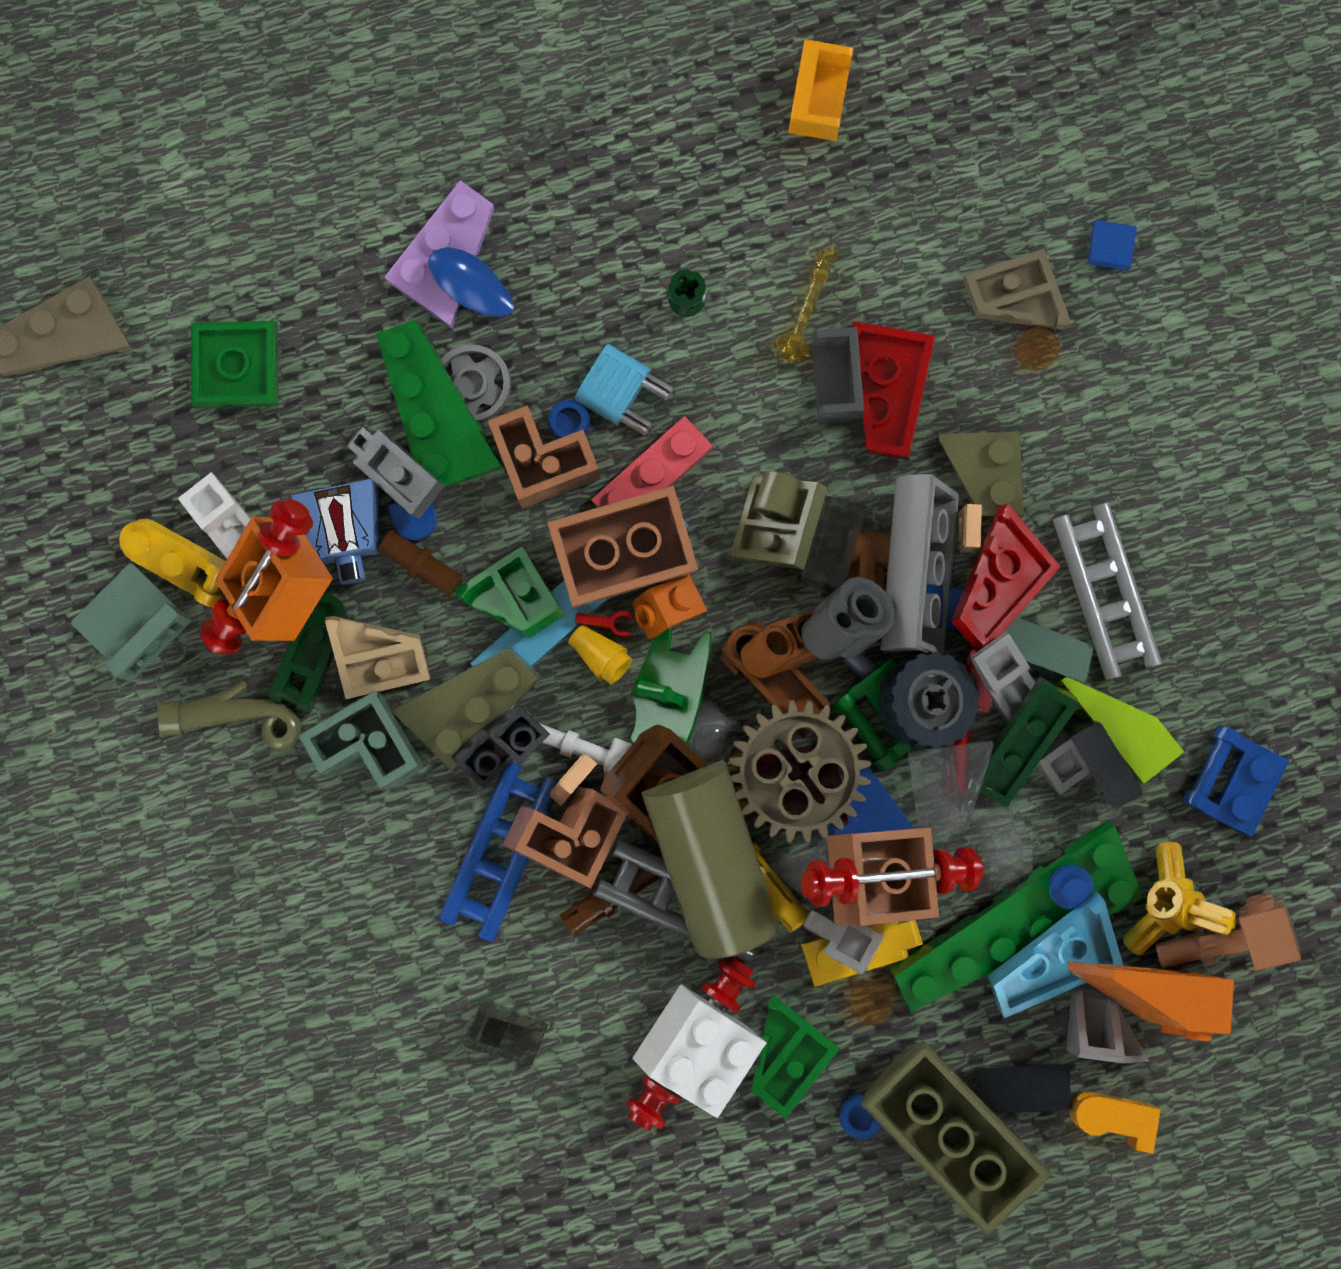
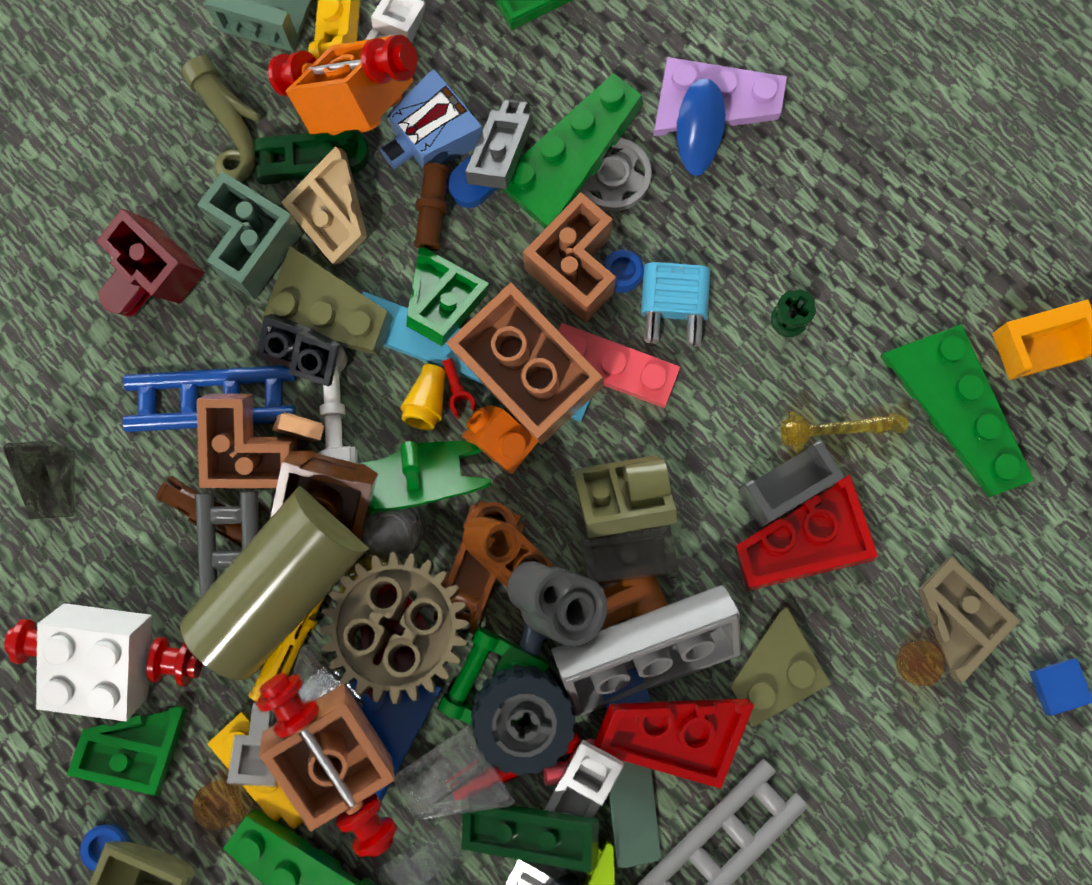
camera: 65 degrees right, 5 degrees down
(345, 851) = (144, 264): none -> dark red brick
(828, 194) = (961, 405): none -> green wing
(969, 528) = (711, 680): light nougat tile -> none

